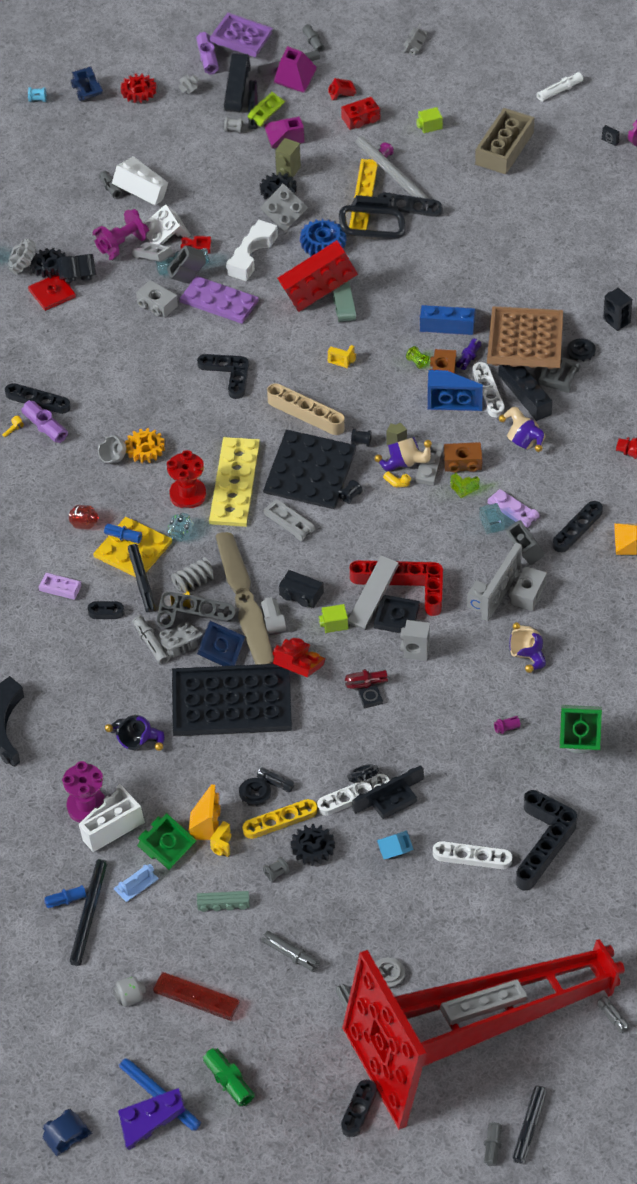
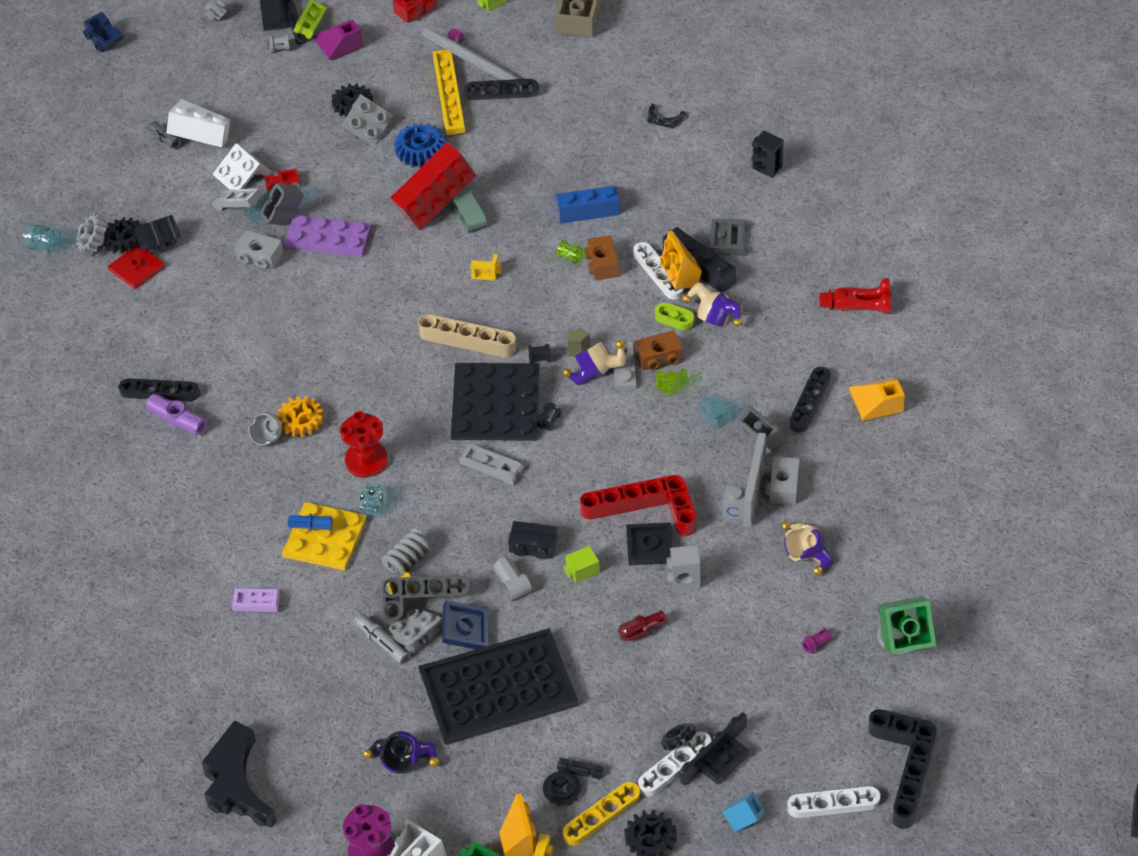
camera: 15 degrees left, 0 degrees up
(16, 420) = (143, 421): yellow hand -> none
(42, 97) = (44, 58): medium azure bush -> none
(83, 516) = (257, 513): clear red head -> none
(105, 610) = (318, 615): black beam -> none
(109, 241) = (185, 196): magenta piece -> none
(138, 88) = (161, 25): red gear -> none
(141, 578) = (348, 569): black axle -> none
(235, 370) = (372, 308): black beam -> none
(243, 488) = (426, 440): light yellow plate -> none
(249, 614) = (483, 580): dark tan piece -> none
(260, 236) = (350, 157): white arch -> none
(288, 157) = (354, 65): olive brick -> none
(296, 657) = (554, 620): red plate -> none
(370, 697) = (653, 645): black tile -> none
(372, 205) = (465, 98): black bar -> none
(373, 592) = (616, 525): light grey tile -> none
(404, 481) = (597, 394): yellow arm -> none
(453, 392) = (624, 281): blue slope -> none
(468, 354) = (623, 236): dark purple pin -> none
(490, 433) = (675, 316): none -> lime plate
(505, 386) = (679, 263): none -> light orange slope
(513, 508) = (733, 394): lavender plate -> none
(525, 337) = (682, 204): medium nougat plate -> none
(548, 263) = (672, 120): none -> black cap
(576, 345) = (734, 202): black gear -> none

